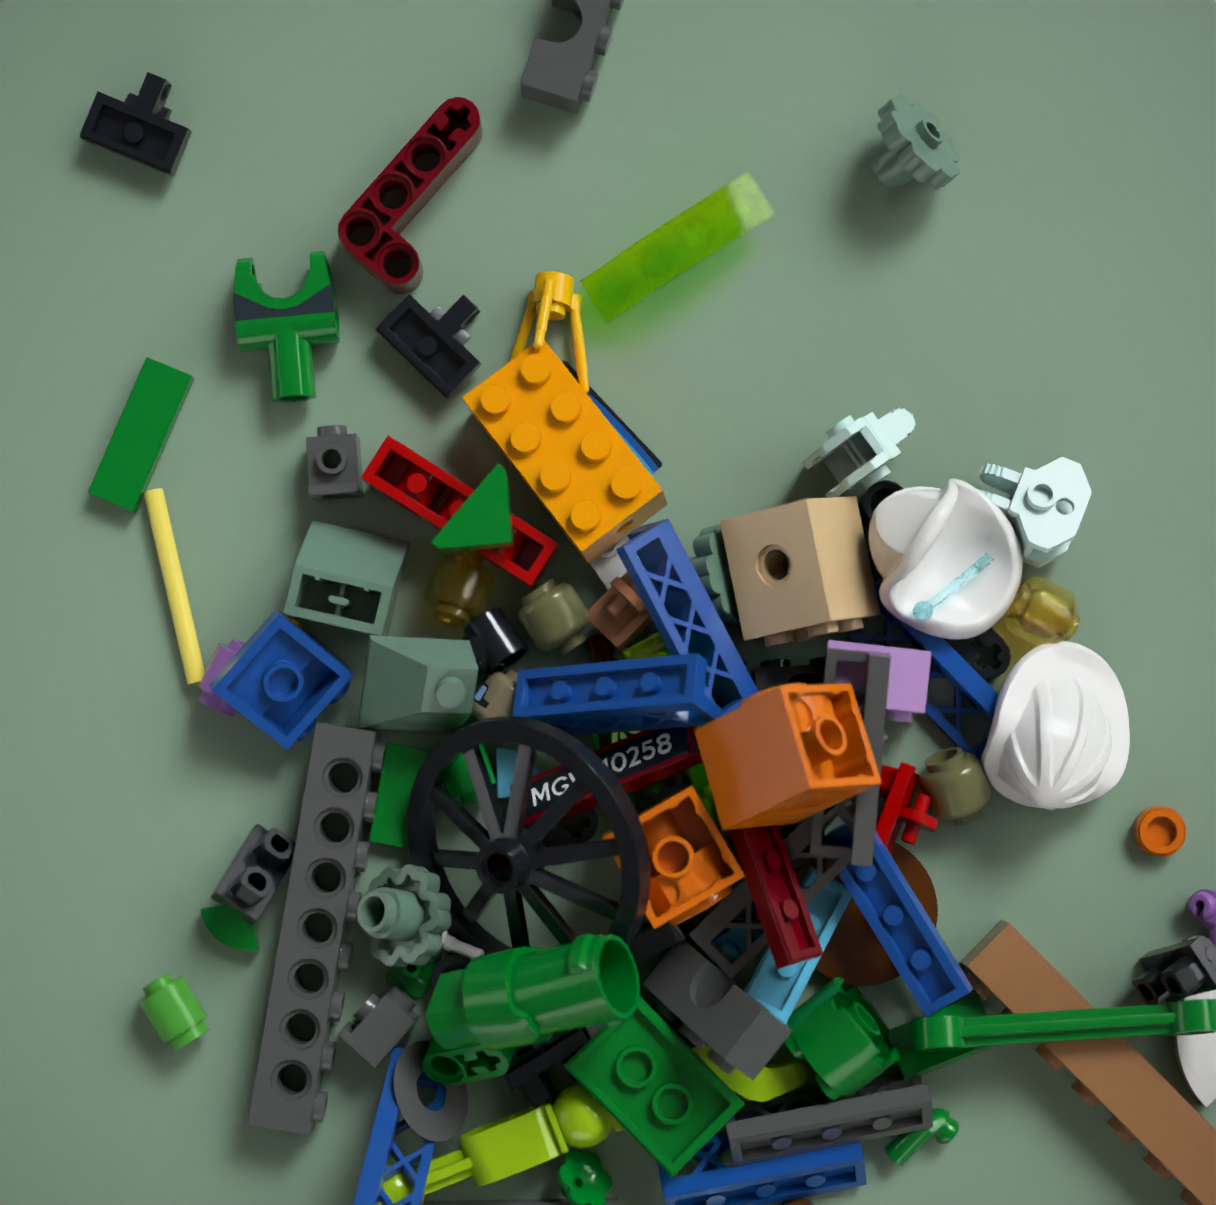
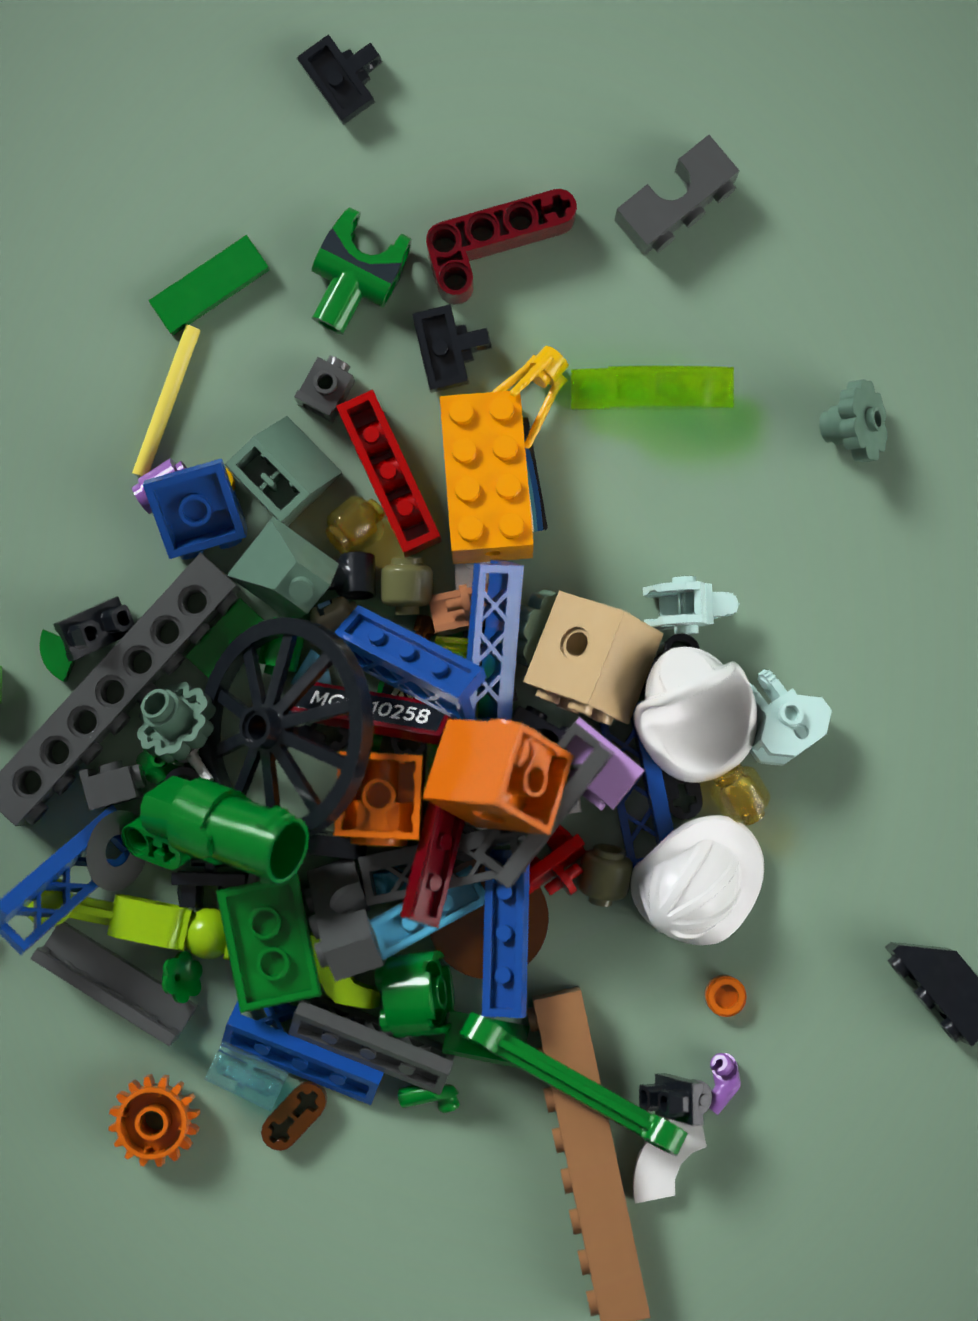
camera: 30 degrees right, 0 degrees up
(483, 518) = (398, 485): green slope -> none
(924, 609) = (658, 739): clear light blue hinge -> none

